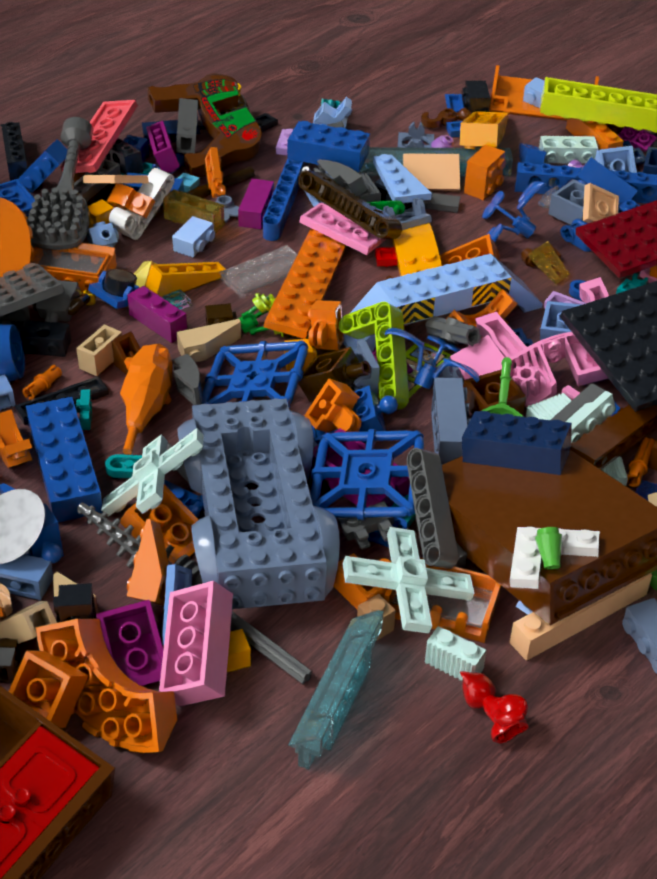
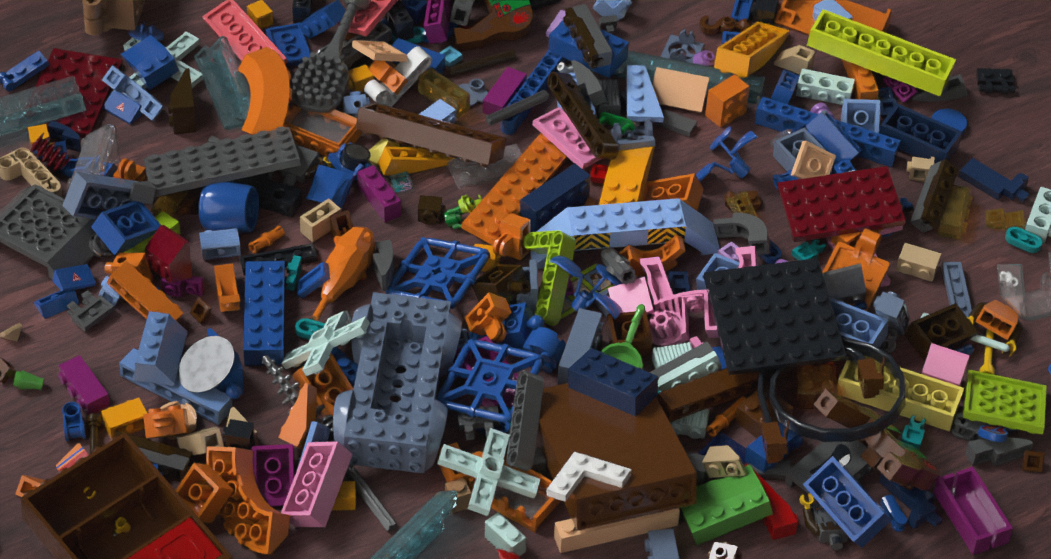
camera: 15 degrees right, 5 degrees up
(100, 310) = (330, 184): none -> blue slope
(111, 411) = (313, 279): none -> blue tile
(196, 245) = (431, 134): none -> reddish brown brick
(205, 341) = (409, 229): tan slope -> none
(214, 174) = (475, 57): orange hinge -> none
(277, 210) = (517, 107): none -> dark grey axle
(330, 130) = (587, 36): none -> piece
(355, 278) = (565, 190): none -> dark blue brick
(408, 418) = (546, 343): none -> blue brick
(529, 131) = (796, 59): none -> tan slope
(549, 545) = (585, 472): bright green cone -> none
(560, 274) = (745, 226): none -> dark grey arch

